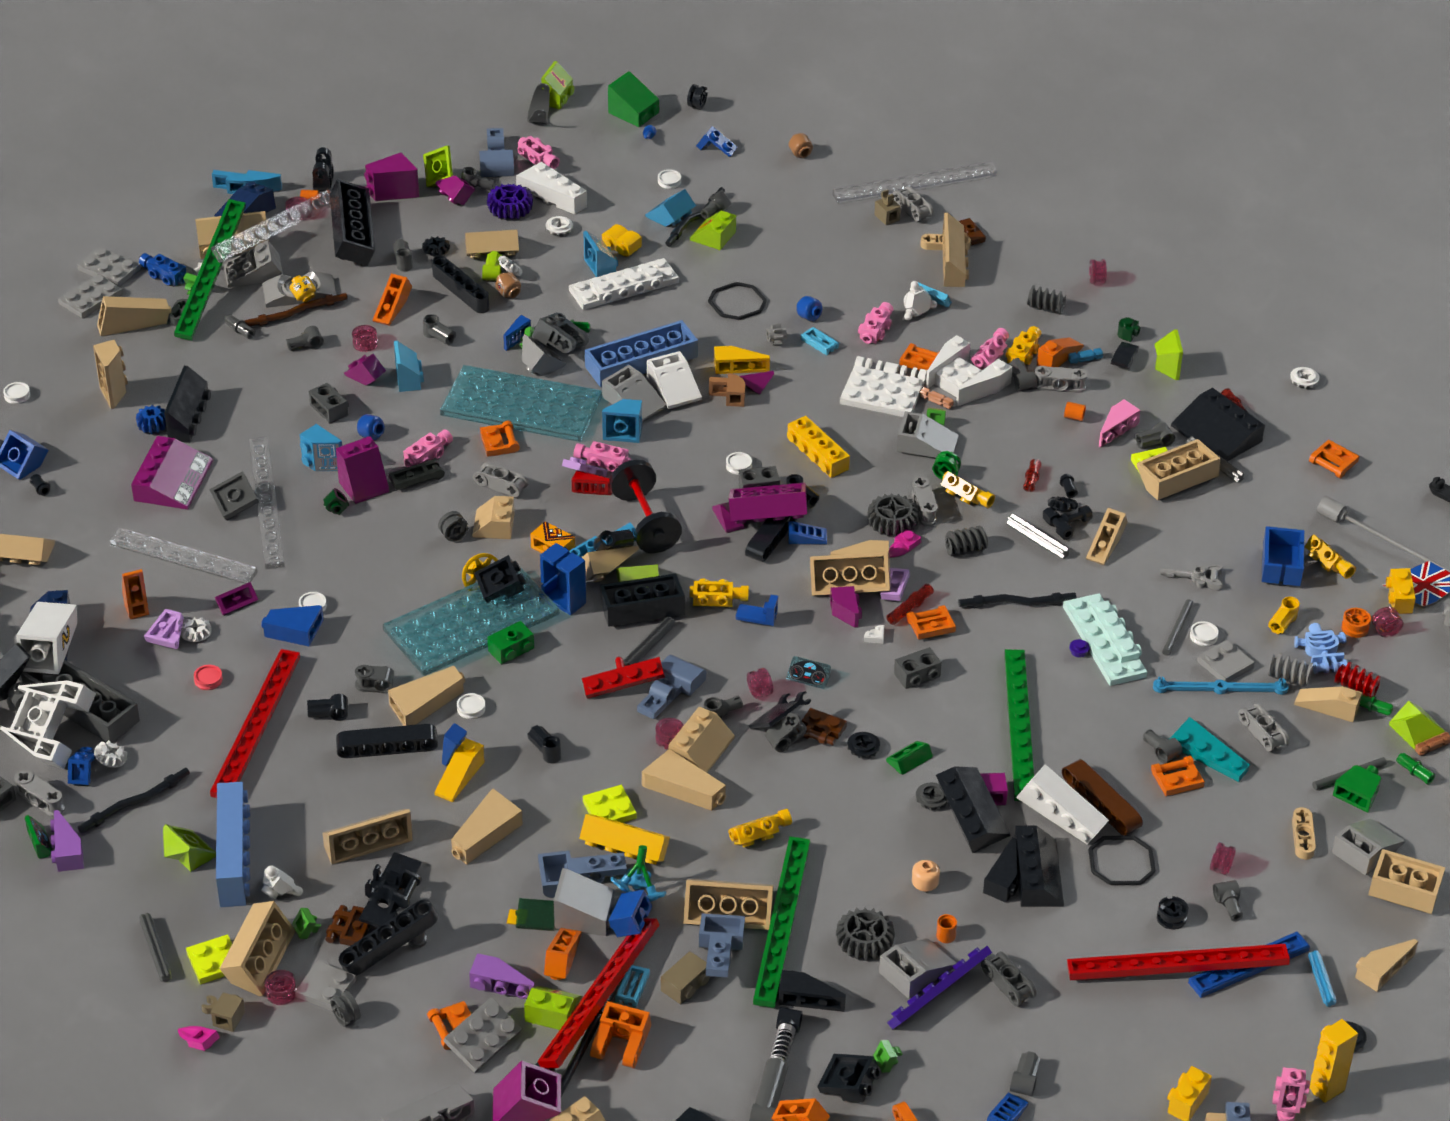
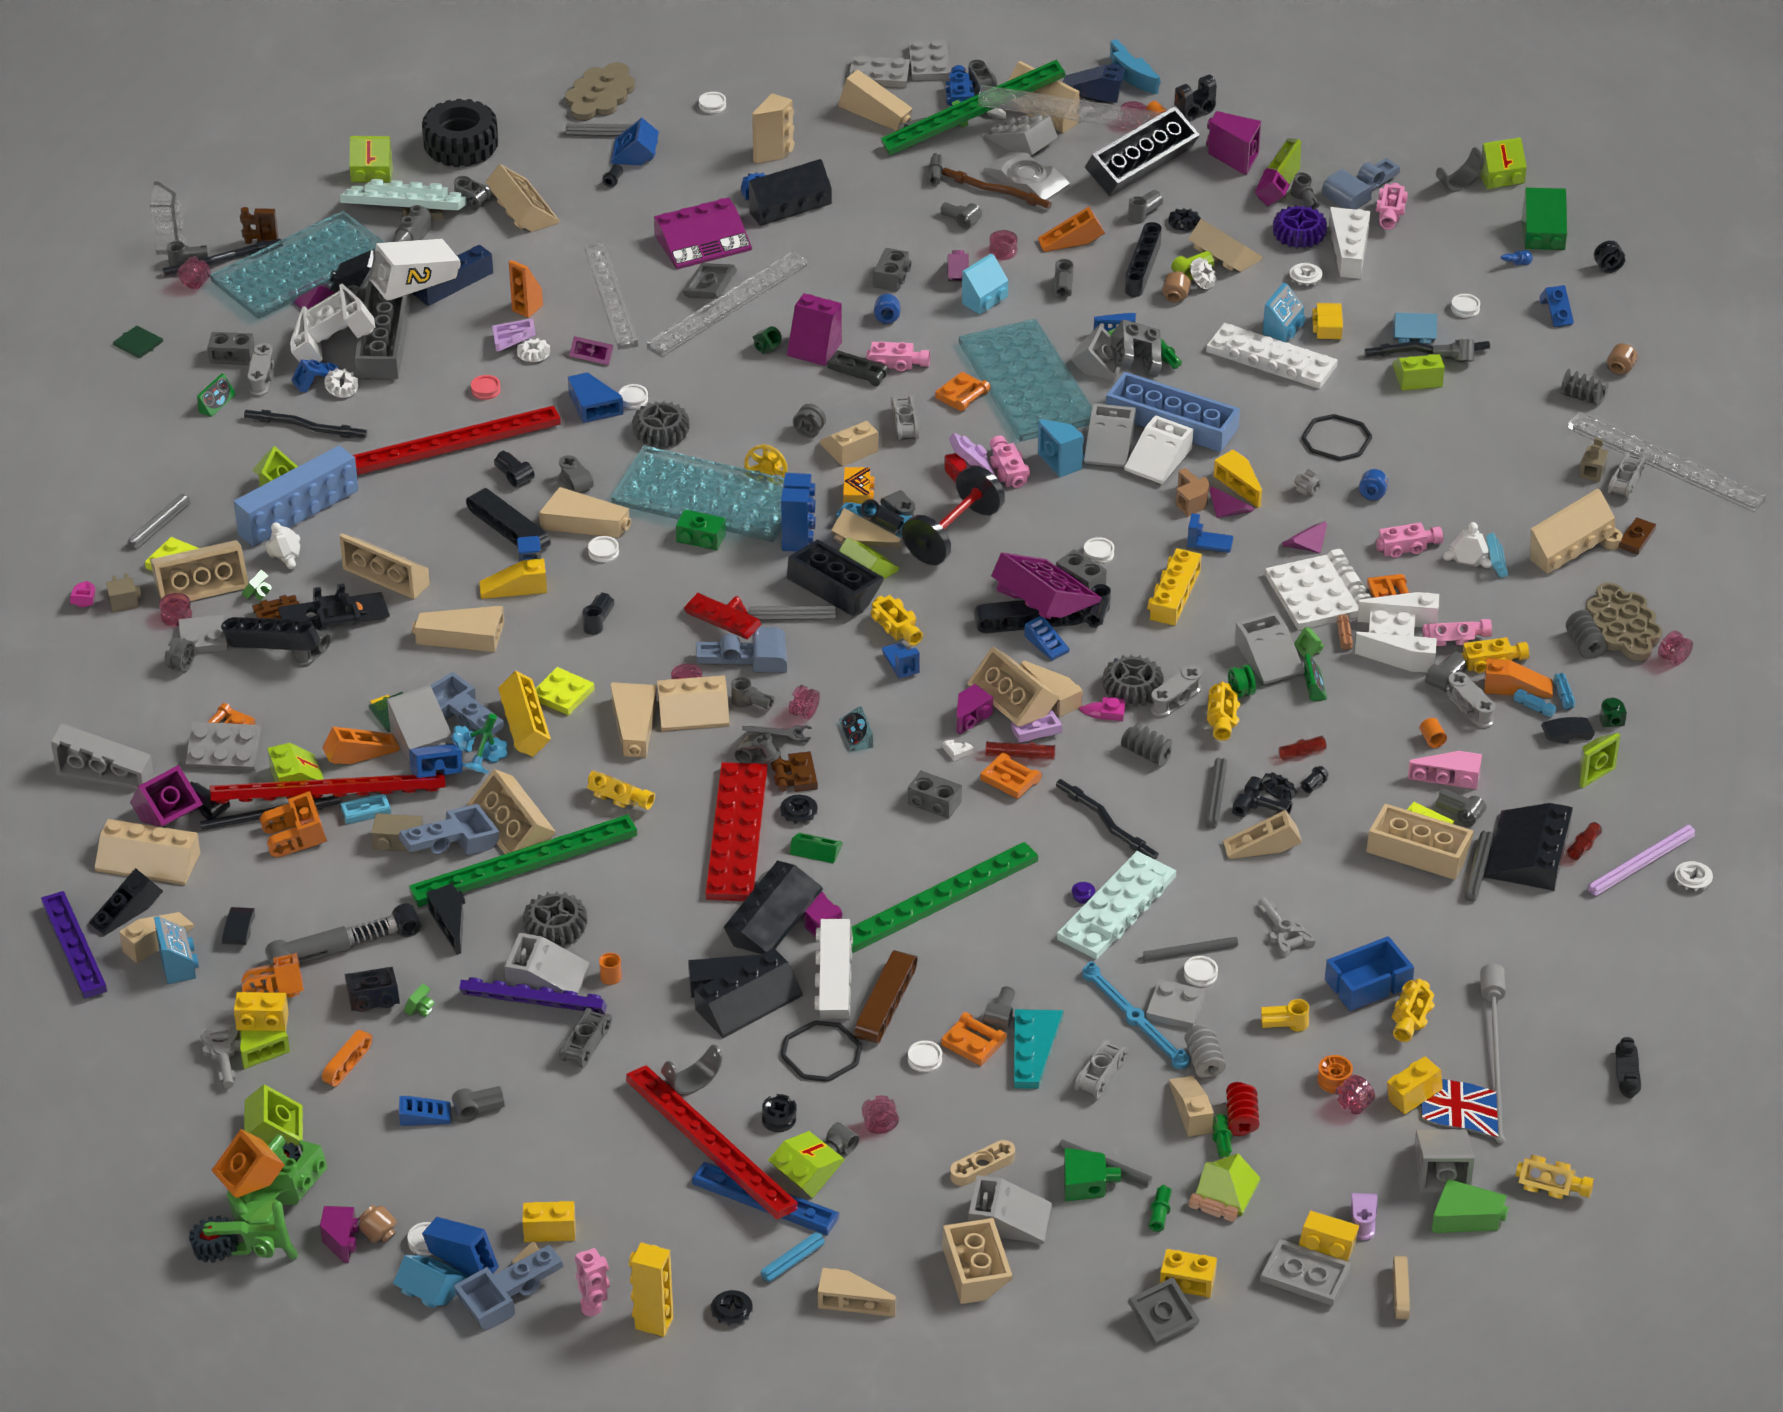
camera: 55 degrees right, 0 degrees up
(67, 845) = (219, 414): medium lavender slope -> none
(166, 249) = (980, 75): none -> dark grey piece
(302, 288) = (1014, 171): yellow head -> none
(319, 449) = (816, 282): dark azure slope -> none
(366, 603) = (660, 424): none -> dark grey gear
(496, 976) = (295, 719): medium lavender slope -> none
(500, 579) = (761, 479): black plate -> none
(593, 527) = (898, 503): none -> dark grey piece
(781, 409) = (1207, 540): none -> blue bracket
(810, 173) = (1583, 388): none -> dark grey piece
(817, 342) = (1338, 527): medium azure tile -> none
(827, 364) = (1309, 539): none -> magenta slope
(856, 789) = (736, 831): none -> red plate
(925, 875) = (661, 923): light nougat head -> none
(971, 435) = (1314, 679): none -> green slope
(1047, 275) = (1624, 621): none -> dark tan plate
(1086, 337) = (1564, 691): none -> dark azure axle
(1093, 934) = (696, 1075): none -> dark grey piece
(1174, 809) = (924, 1056): none -> white piece
(1243, 920) = (806, 1162): none -> lime slope
(1271, 391) = (1641, 860): none -> lavender axle
(1322, 648) = (1271, 1065): light blue piece -> none
(1335, 454) = (1589, 952): orange plate -> none

